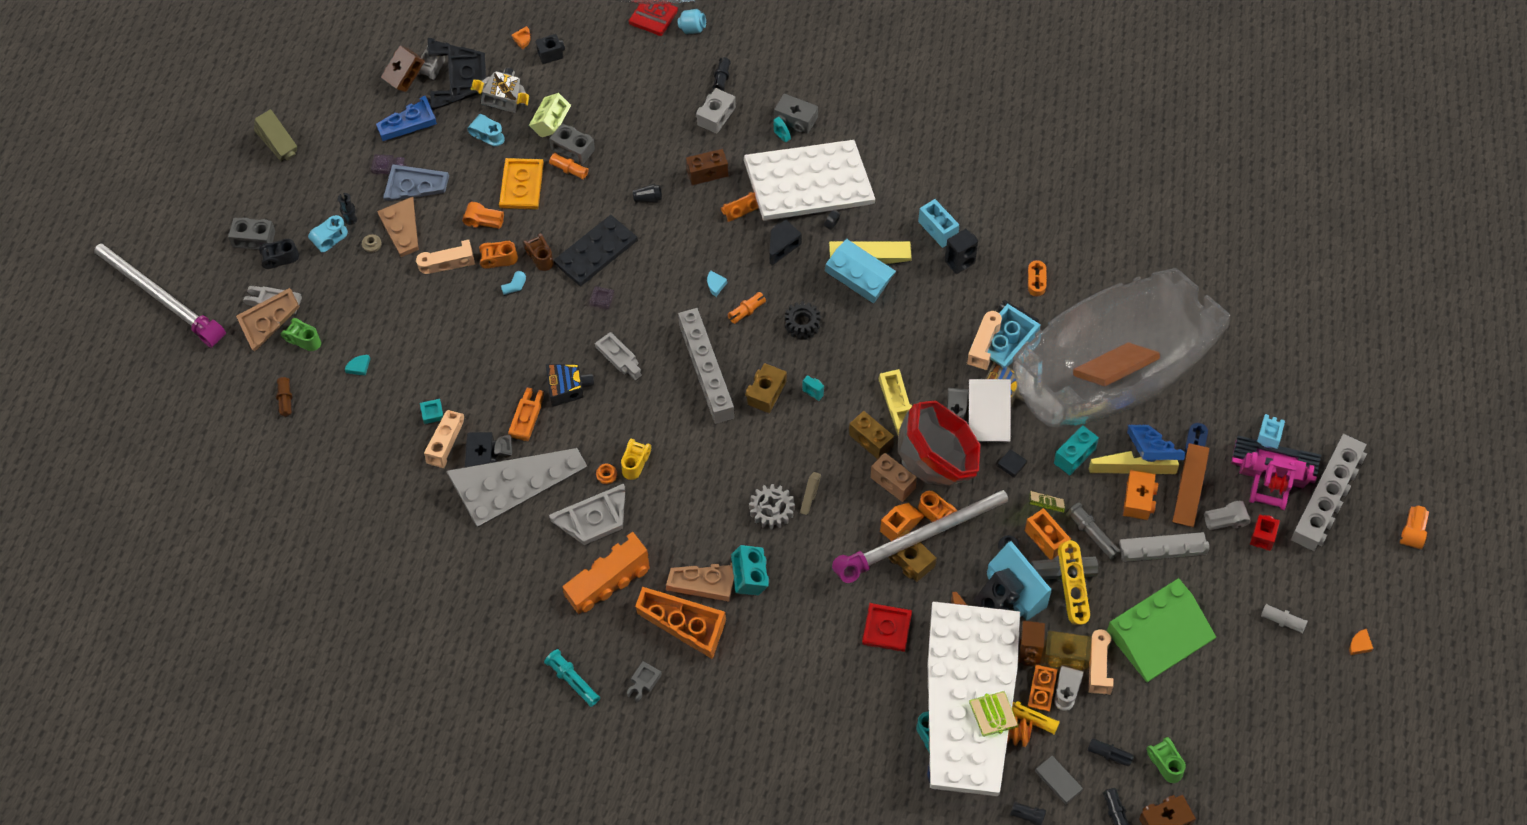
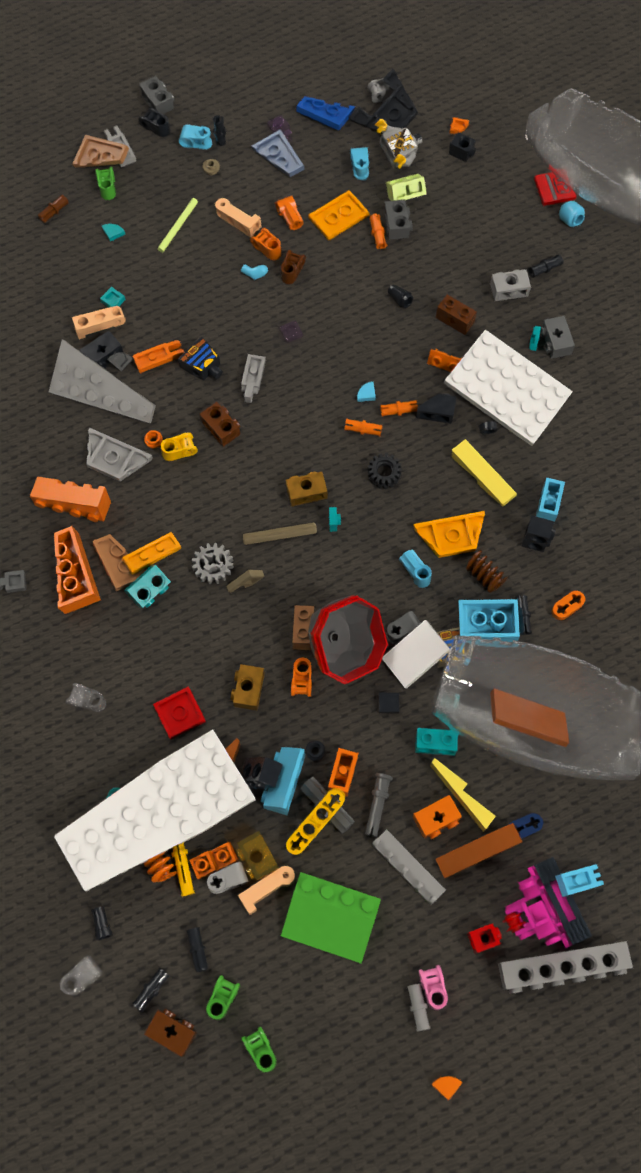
camera: 50 degrees right, 10 degrees up
(207, 331) = (64, 129): flat silver piece -> none
(275, 136) = (240, 49): olive slope -> none
(401, 226) = (240, 171): medium nougat wing -> none
(402, 68) = (359, 76): brick -> none
(404, 310) = (177, 225): none -> yellowish green bar
(595, 250) = (325, 299): black plate -> none
(642, 416) = (216, 426): none -> reddish brown brick
(706, 366) = (290, 436): light grey brick -> none
(718, 548) = (151, 553): none -> light orange tile
(753, 270) = (398, 408): none -> orange pin
(788, 438) = (279, 533): none -> dark tan axle
(808, 693) = (83, 696): none -> clear piece
(859, 270) = (458, 476): medium azure slope -> none
(860, 562) = (197, 650): flat silver piece -> none
(871, 435) = (325, 585): pearl gold brick -> none
(895, 396) = (376, 579): light yellow slope -> none
(900, 519) = (271, 659): orange slope -> none
(904, 313) = (452, 534): none -> light orange wing
(912, 358) = (416, 567): none -> medium azure piece
(959, 311) = (485, 572): none -> reddish brown piece
(978, 353) = (467, 604): light nougat leg -> none
(993, 713) = (146, 840): piece -> none
(1031, 643) = (237, 826): reddish brown brick -> none
(1046, 501) = (371, 751): clear neon green piece -> none
(1059, 780) = (146, 926): dark grey tile -> none
(1151, 446) = (485, 796): blue wing -> none
(1231, 515) = (475, 899): light grey piece -> none
(1231, 758) = (259, 1049): none -> bright green piece
(1276, 595) = (433, 985): none -> bright pink piece
(1414, 530) = (586, 1063): orange piece -> none

